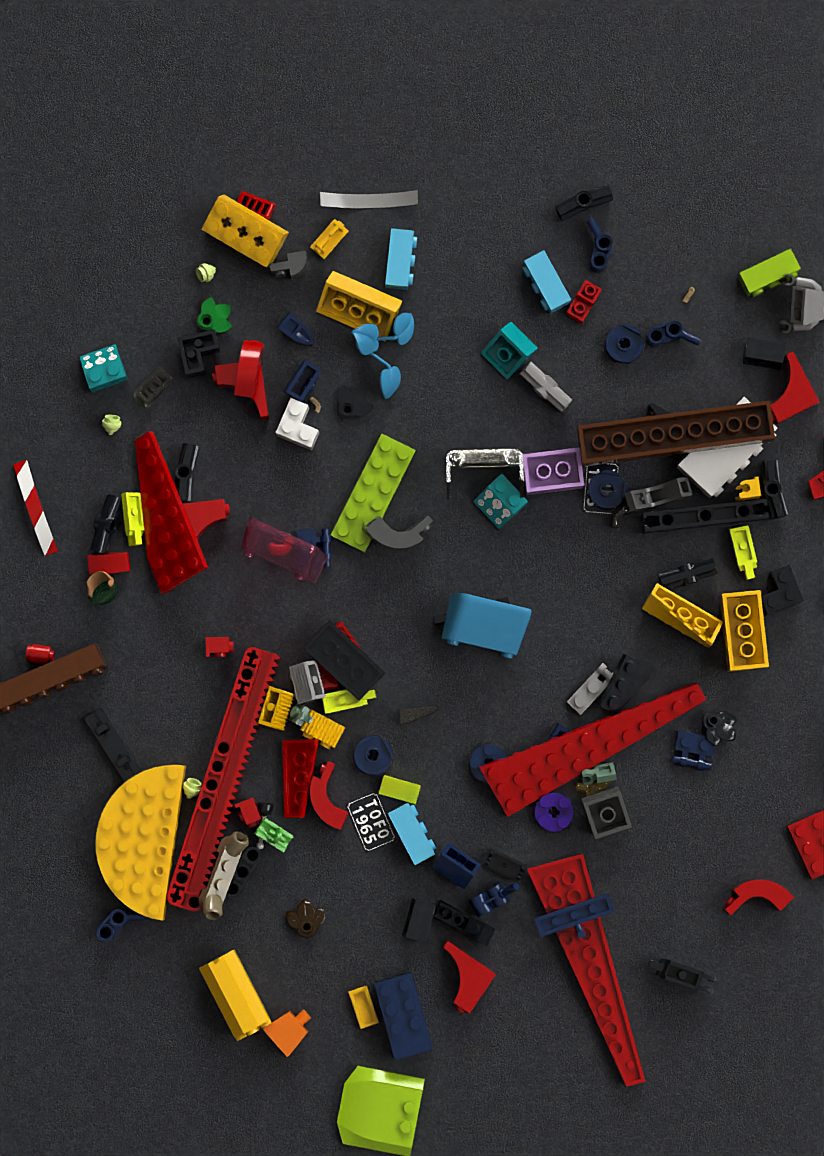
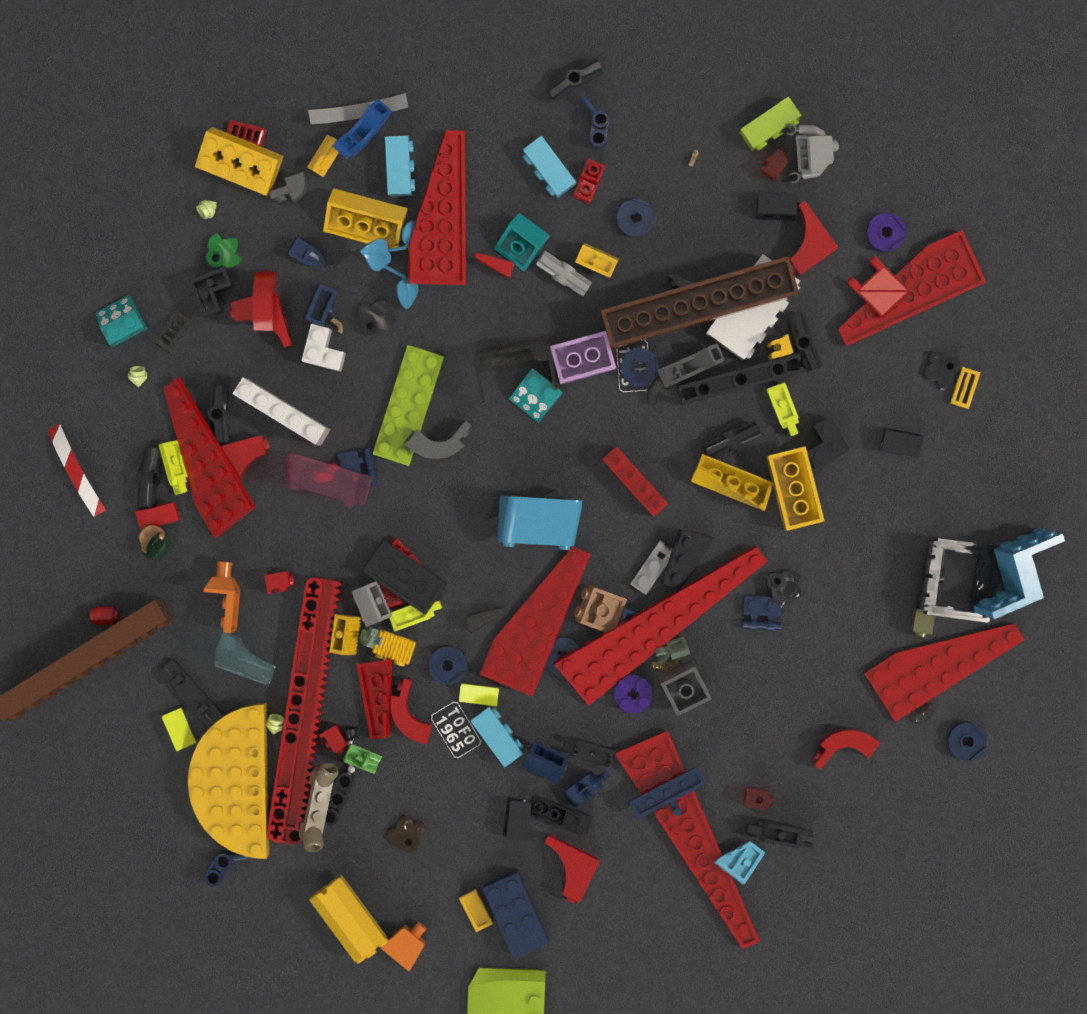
camera: 10 degrees left, 5 degrees up
(95, 779) = (178, 729): none -> neon yellow slope
(164, 640) = (225, 584): none -> orange plate
(165, 717) = (236, 658): none -> clear light blue arch
(248, 478) = (281, 411): none -> white brick
(372, 219) = (364, 130): none -> blue arch
(429, 330) = (439, 232): none -> red wing
(456, 742) = (528, 638): none -> red wing
(483, 369) = (499, 265): none -> red slope
(532, 721) = (599, 609): none -> medium nougat plate
(580, 379) = (597, 260): none -> yellow hinge
(586, 600) = (635, 481): none -> red brick
(637, 996) = (741, 861): none -> medium azure wing
(656, 932) = (752, 793): none -> clear red brick
(666, 336) = (676, 204): dark blue beam -> none
(768, 312) = (775, 164): none -> clear red brick

